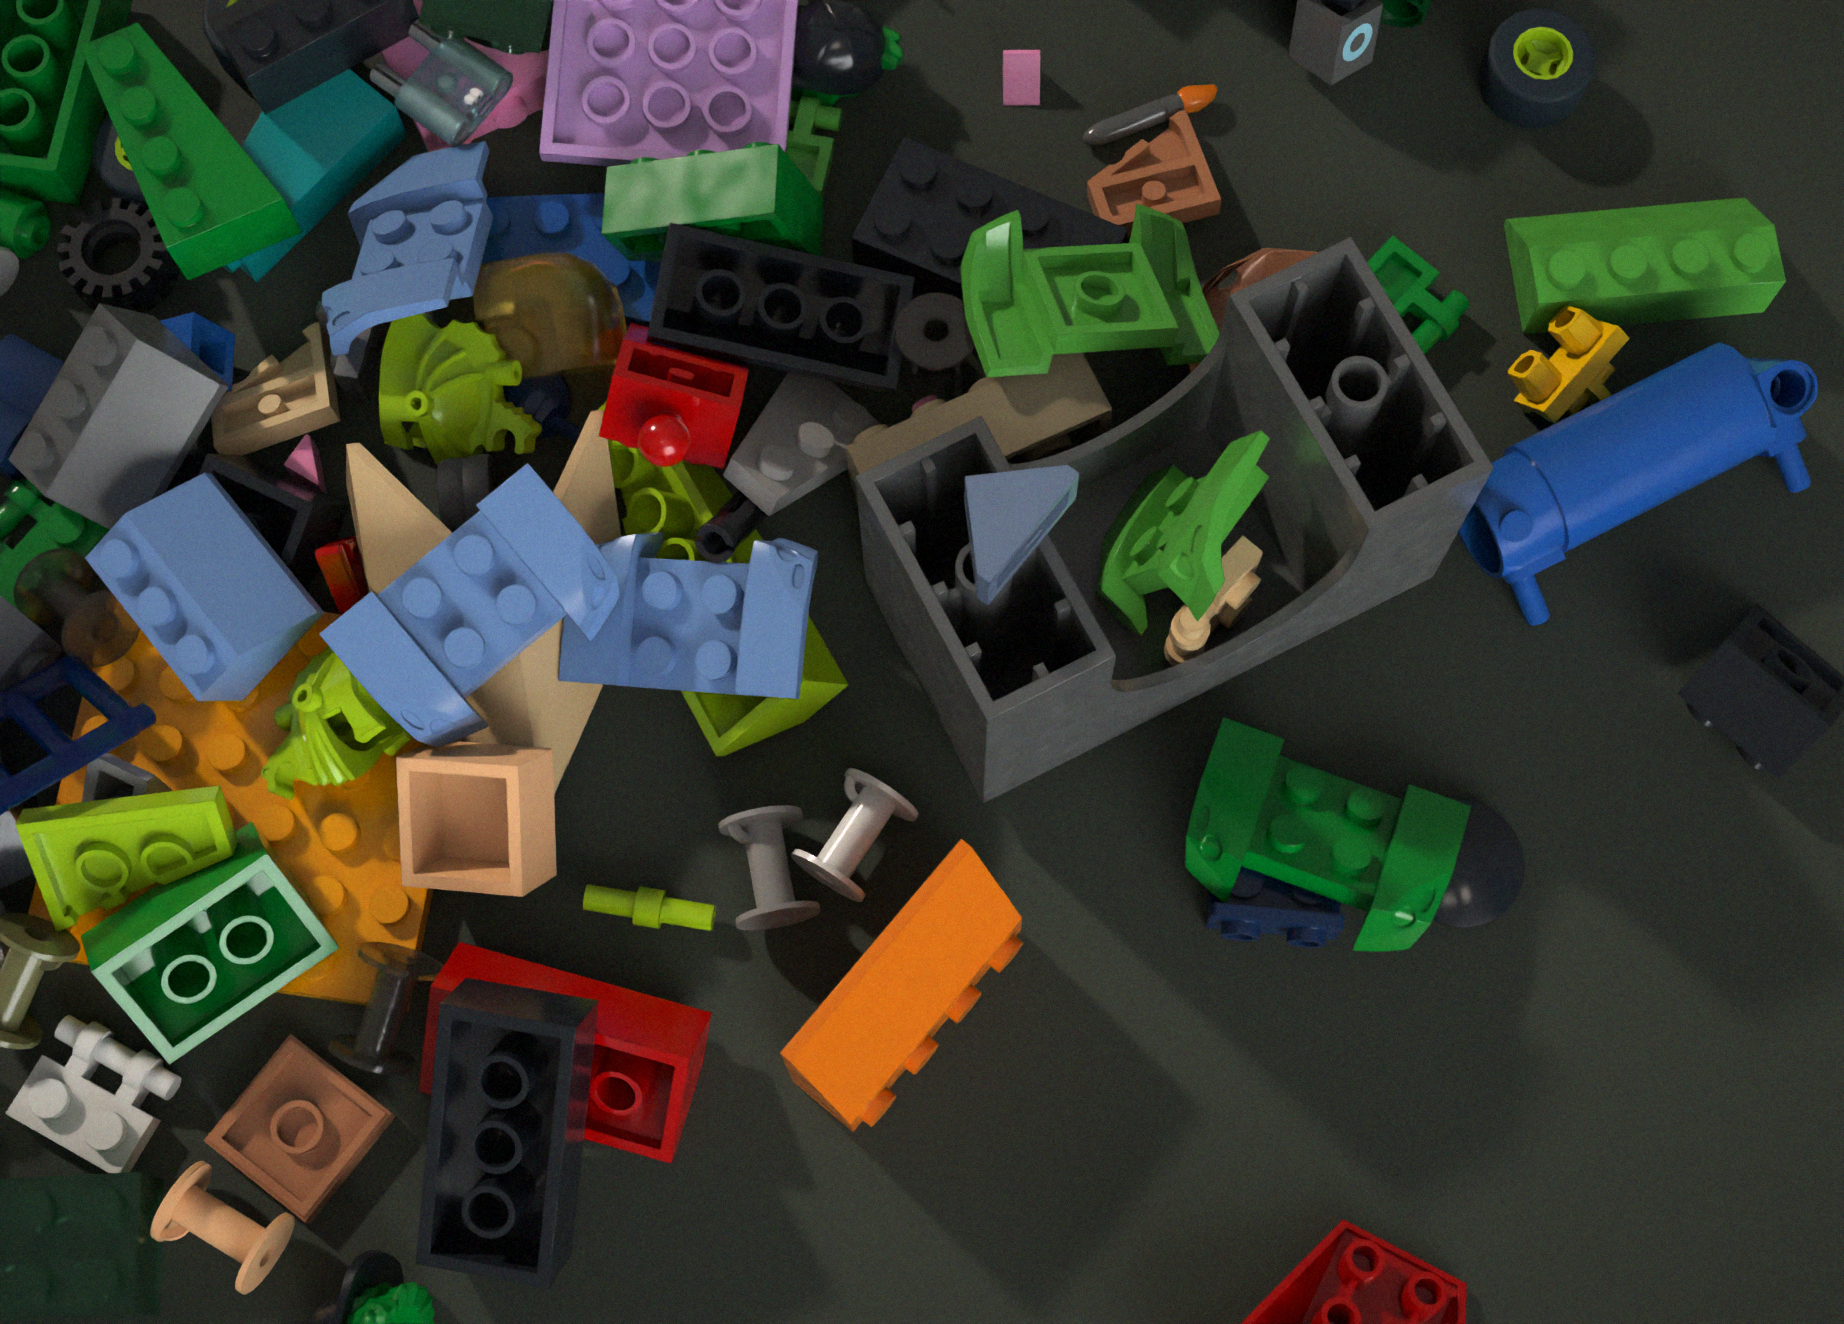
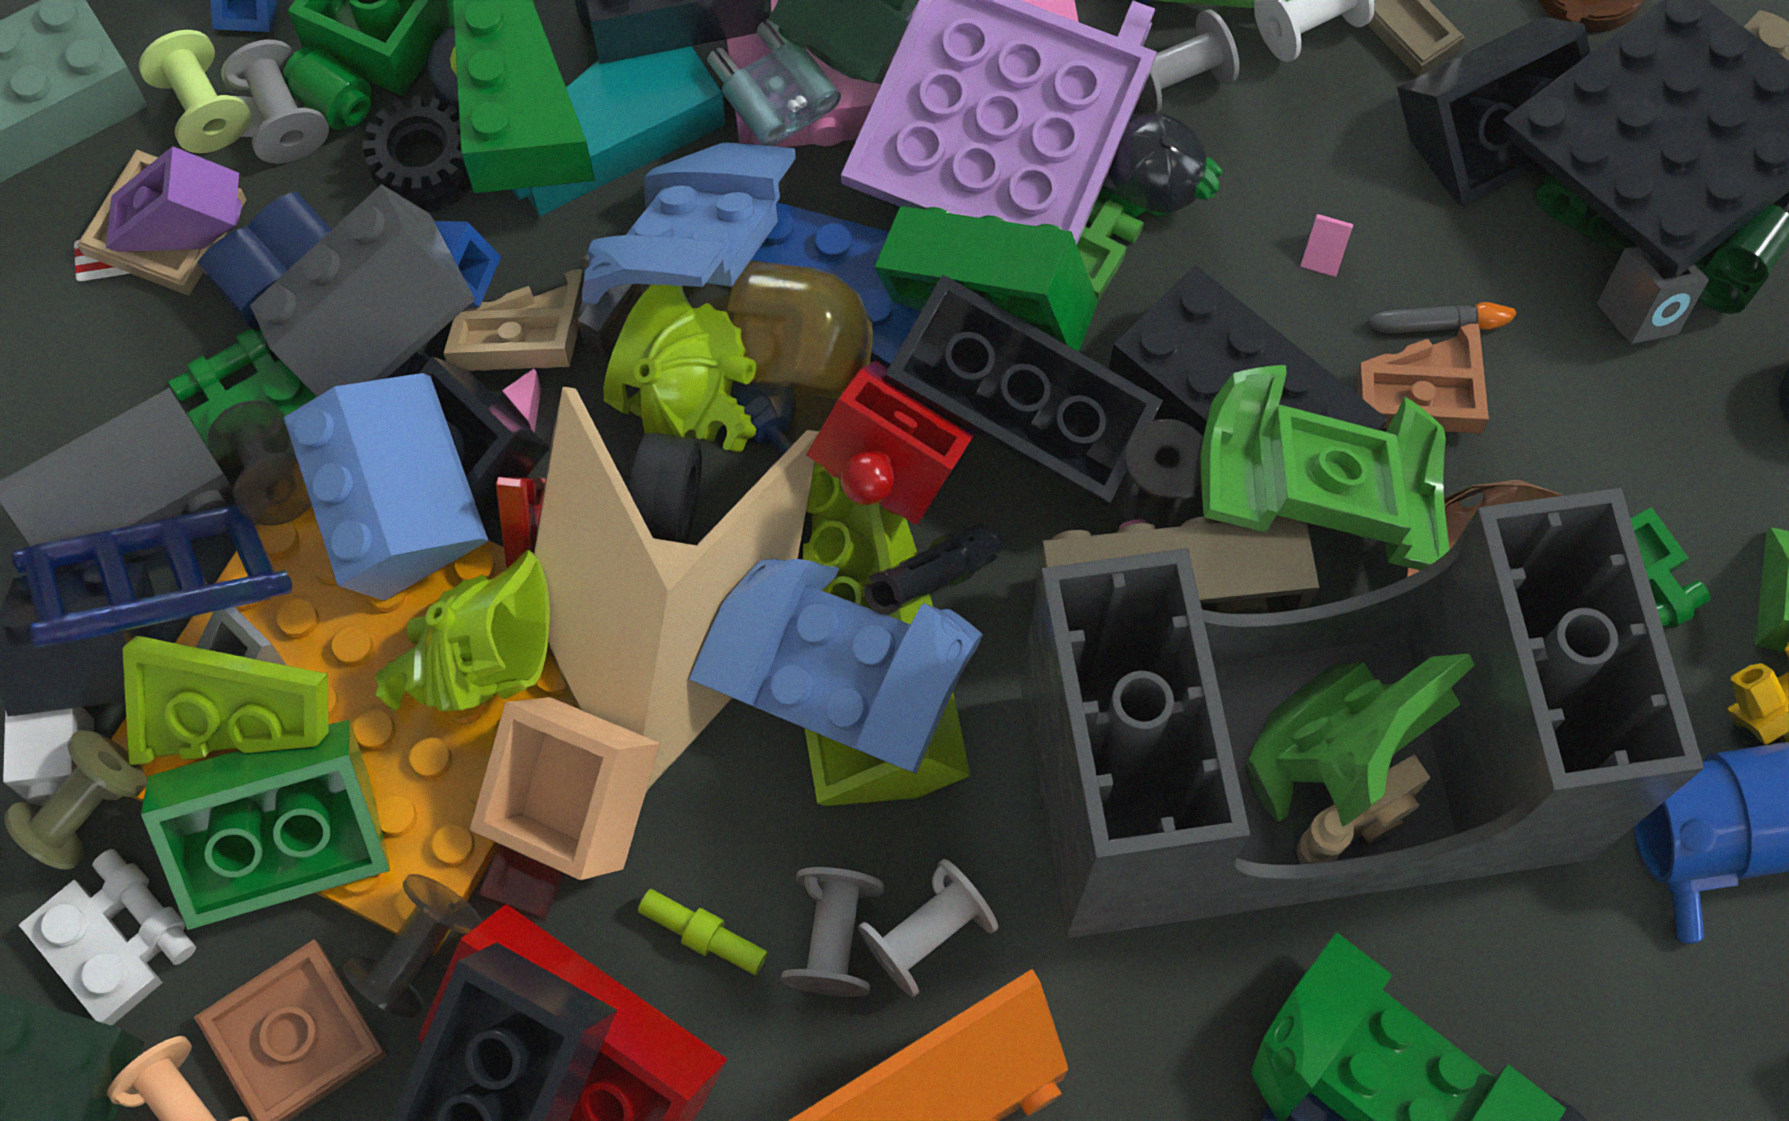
camera: 15 degrees right, 5 degrees down
(466, 919) = (521, 883): none -> clear red plate
(474, 609) = (629, 583): medium blue piece -> none
(796, 442) = (996, 523): light grey wing -> none
(1010, 517) = (1185, 658): sand blue slope -> none

